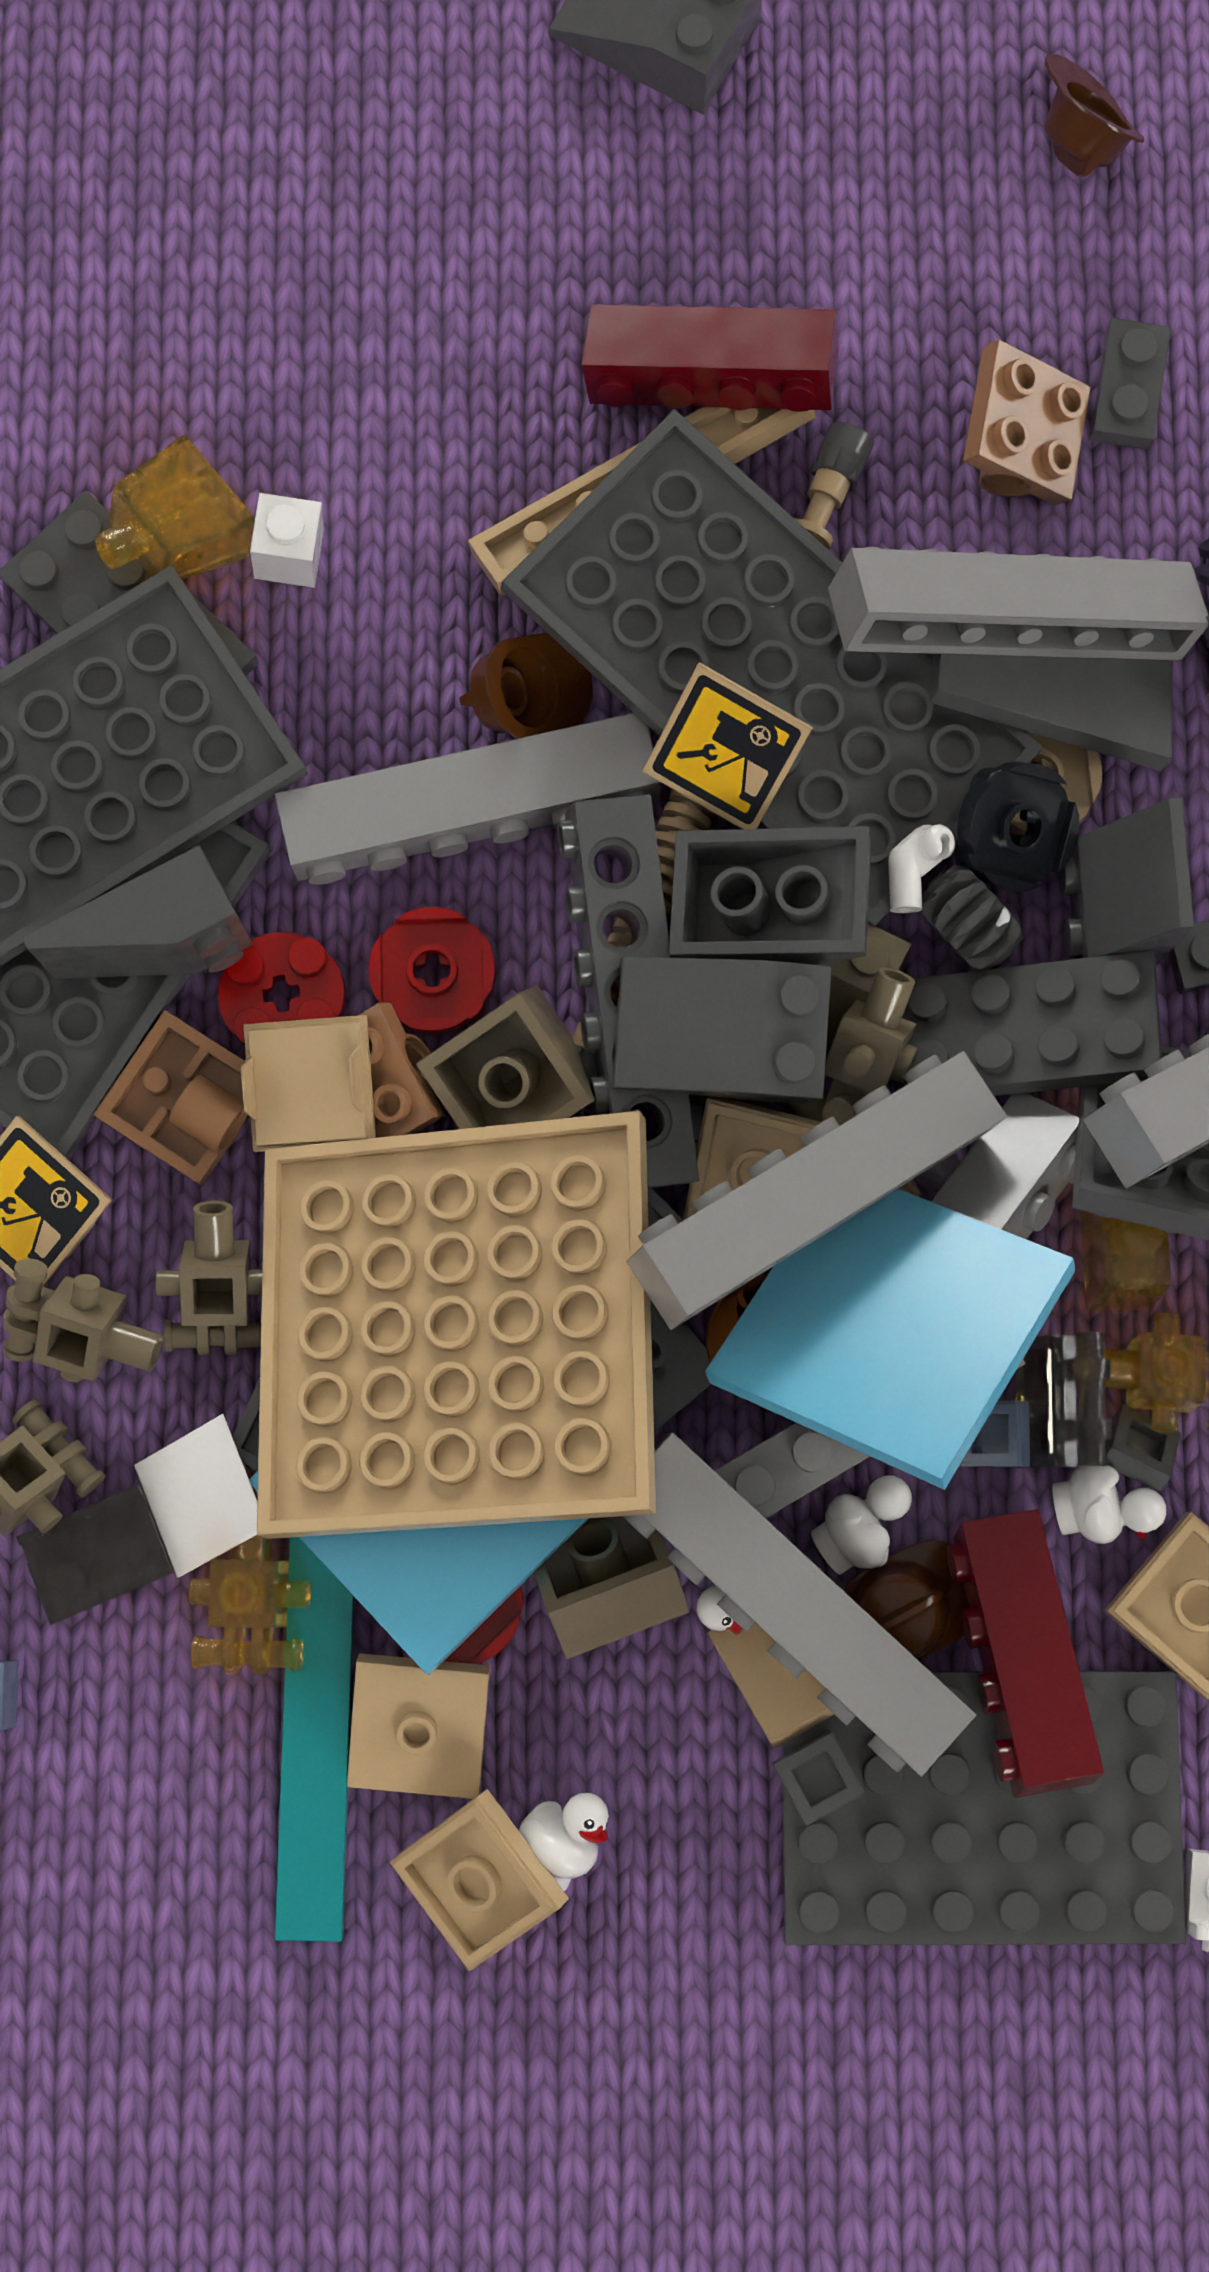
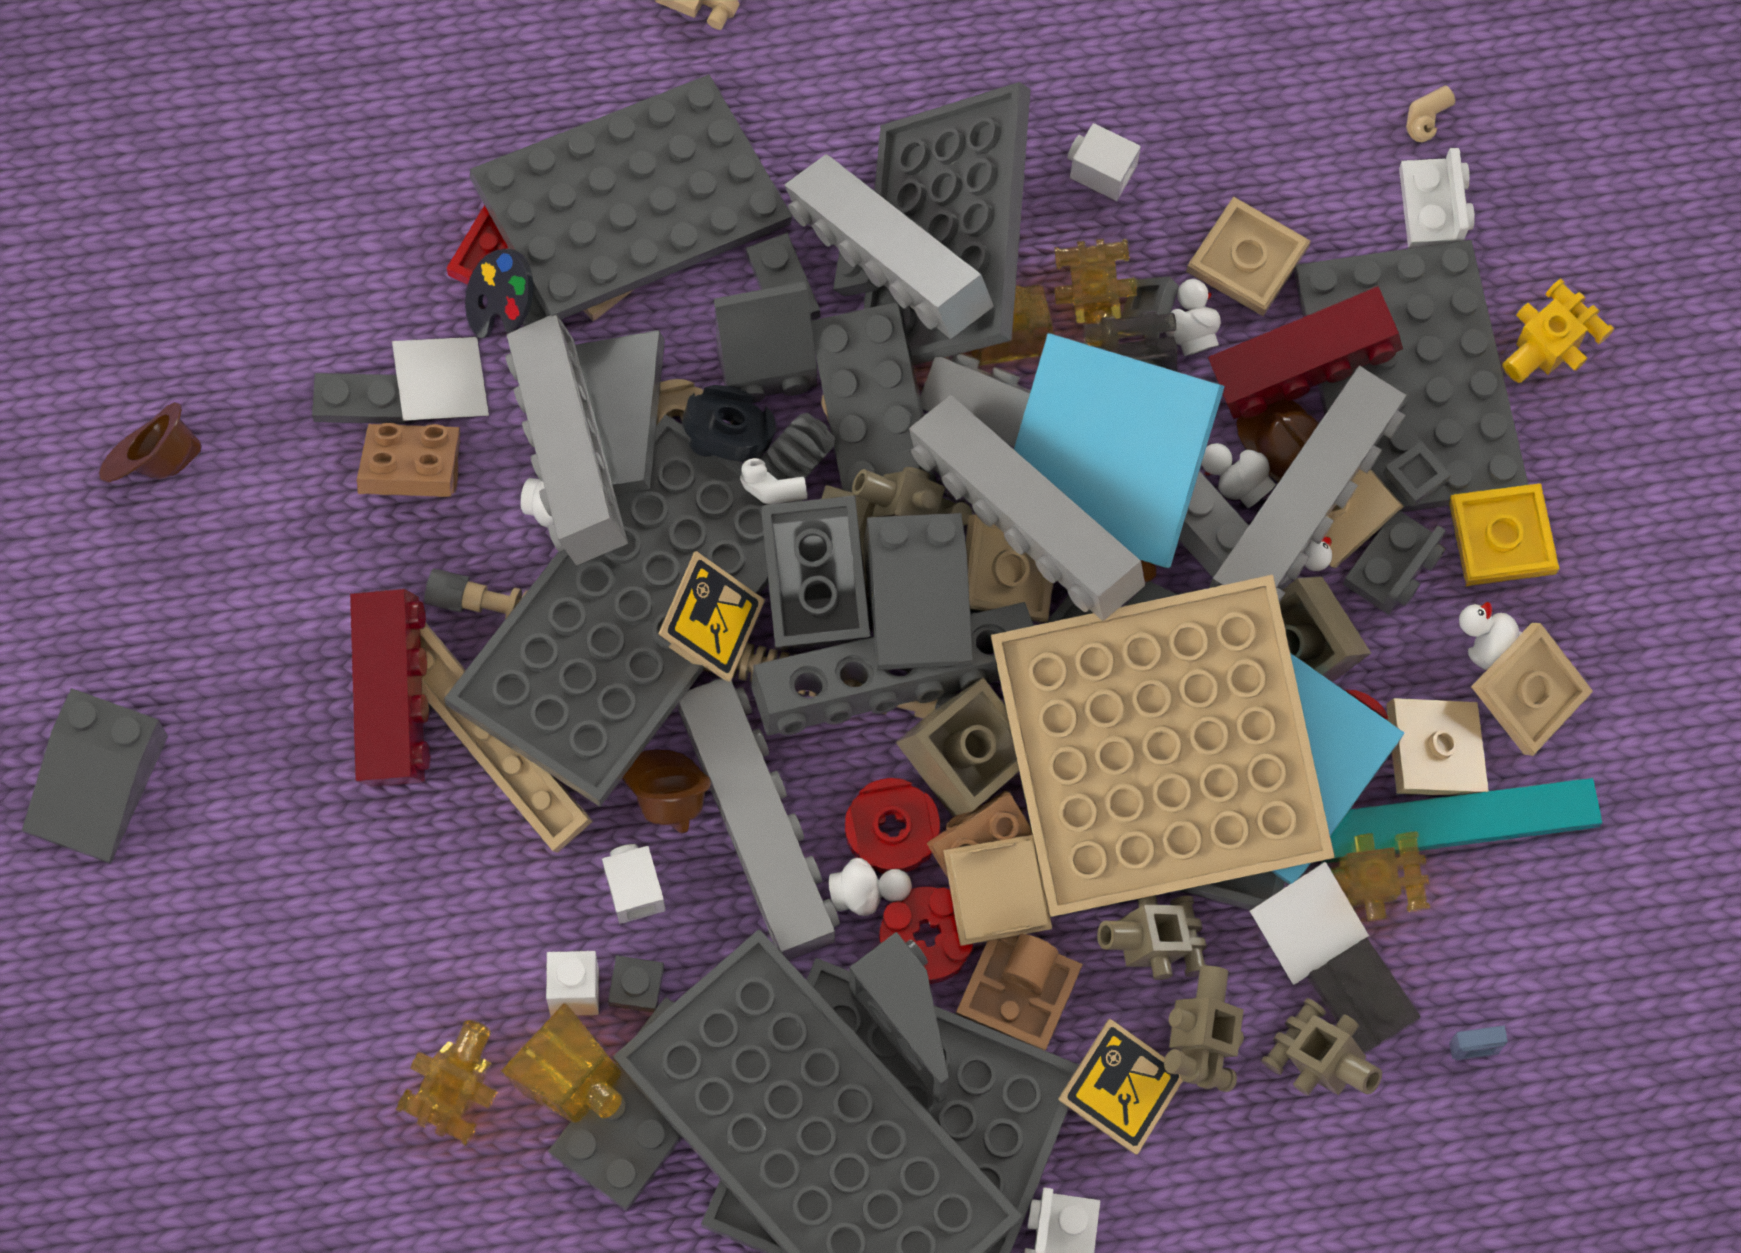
camera: 100 degrees left, 10 degrees down
(185, 382) = (451, 1084): none -> clear yellow piece
(282, 626) = (636, 984): none -> dark grey plate
(350, 916) = (860, 889): none -> white animal
(408, 633) = (633, 883): none -> white brick
(704, 1725) = (1394, 560): none -> dark grey bracket
(720, 1892) = (1503, 534): none -> yellow plate
(1019, 2038) = (1555, 333): none -> yellow piece
(1145, 484) = (440, 378): none -> white sticker

